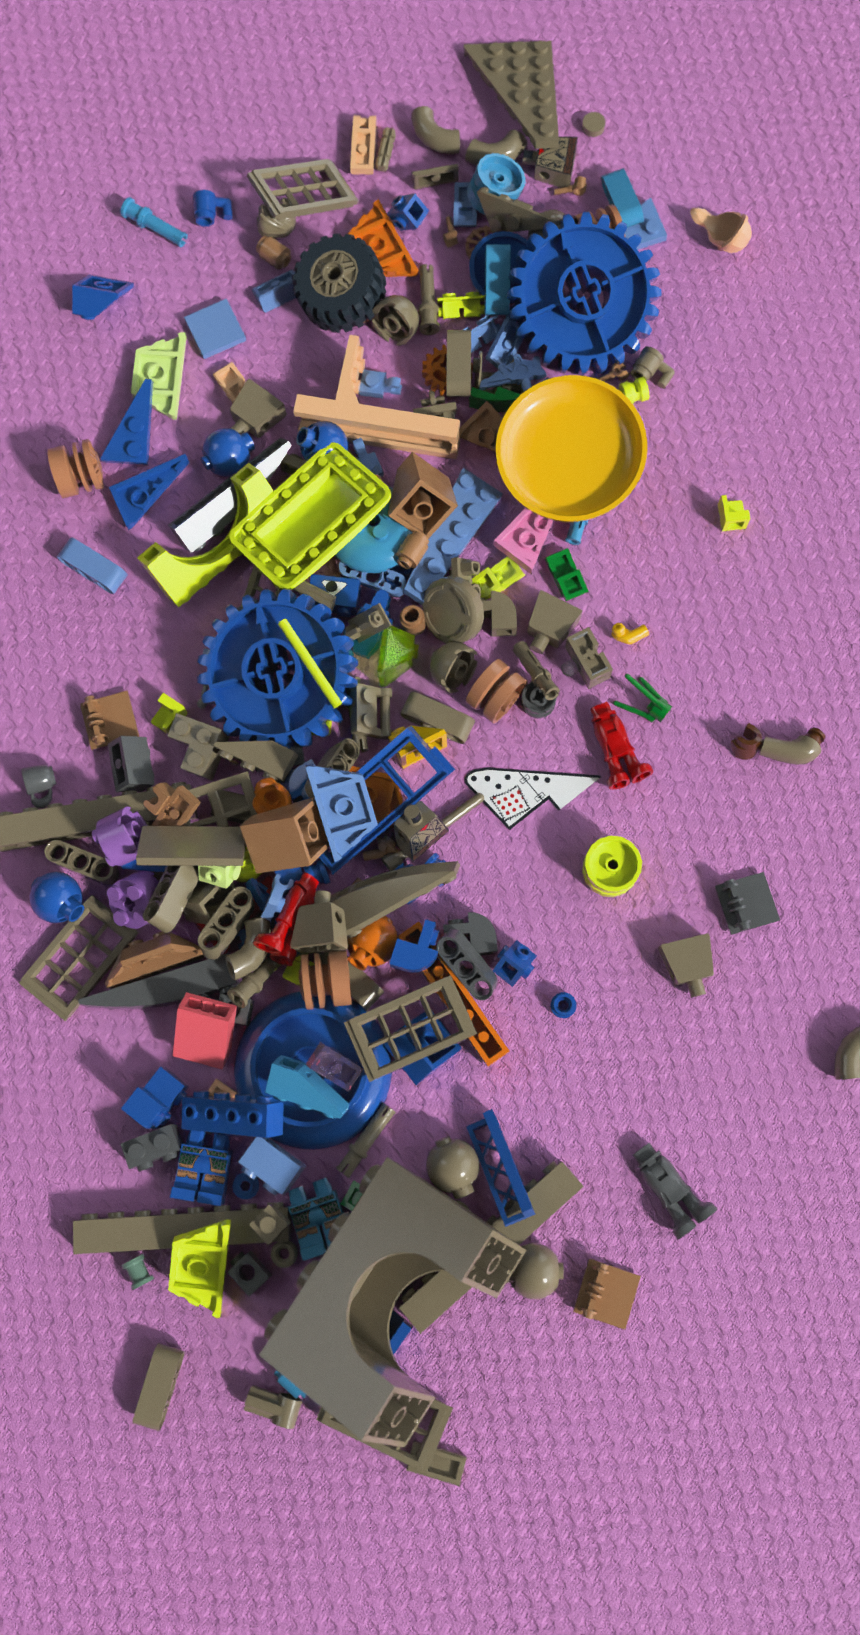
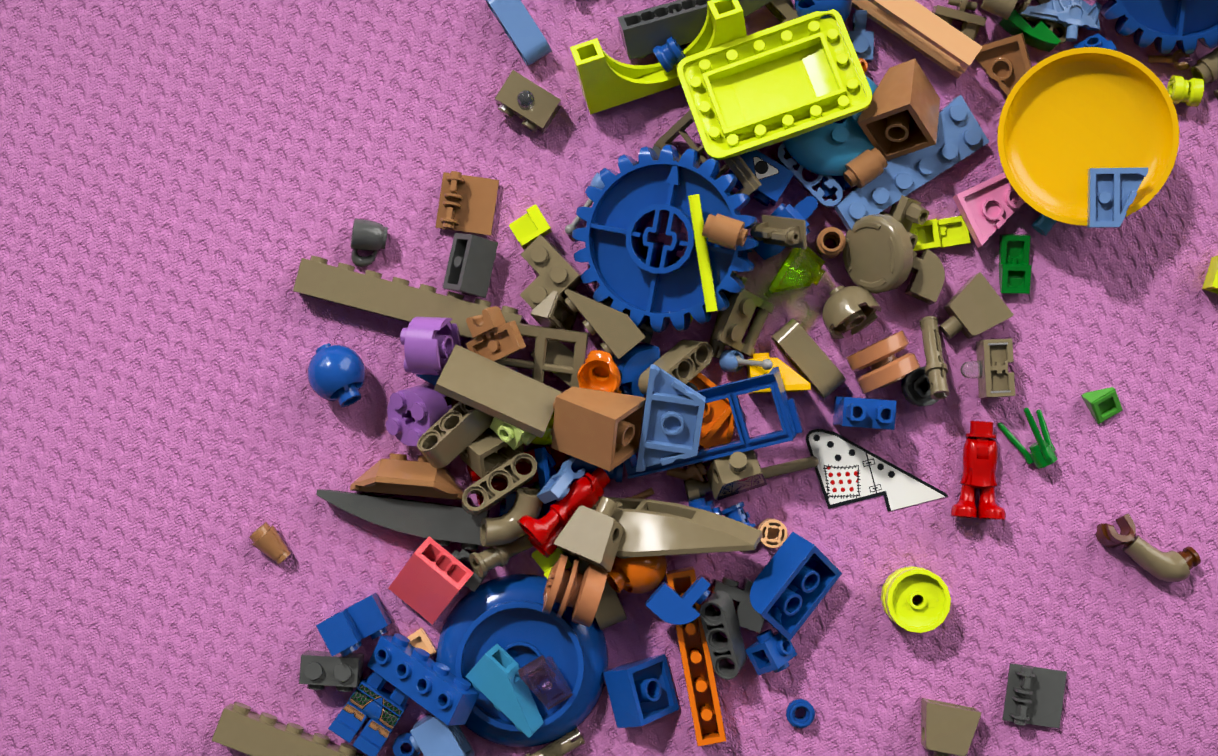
camera: 25 degrees right, 10 degrees up
(47, 995) = (287, 466): dark tan piece -> none
(57, 1064) = (270, 543): none -> medium nougat cone
(71, 857) = (366, 337): dark tan beam -> none
(124, 619) = (528, 102): none -> dark tan piece
(214, 768) = (554, 313): none -> dark tan slope
(219, 533) = (669, 54): none -> blue wheel
(318, 636) = (725, 231): none -> medium nougat brick
(364, 1049) = (692, 675): dark tan piece -> none
(377, 743) = (734, 361): none -> medium blue hinge
(473, 871) = (769, 530): none -> light nougat wheel
(500, 735) = (864, 413): none -> blue hips
(506, 897) = (792, 585): none -> blue brick
(609, 480) = (1111, 194): none -> medium blue wing
(628, 636) = (1047, 360): yellow arm -> none
(687, 650) = (1102, 403): none -> bright green slope

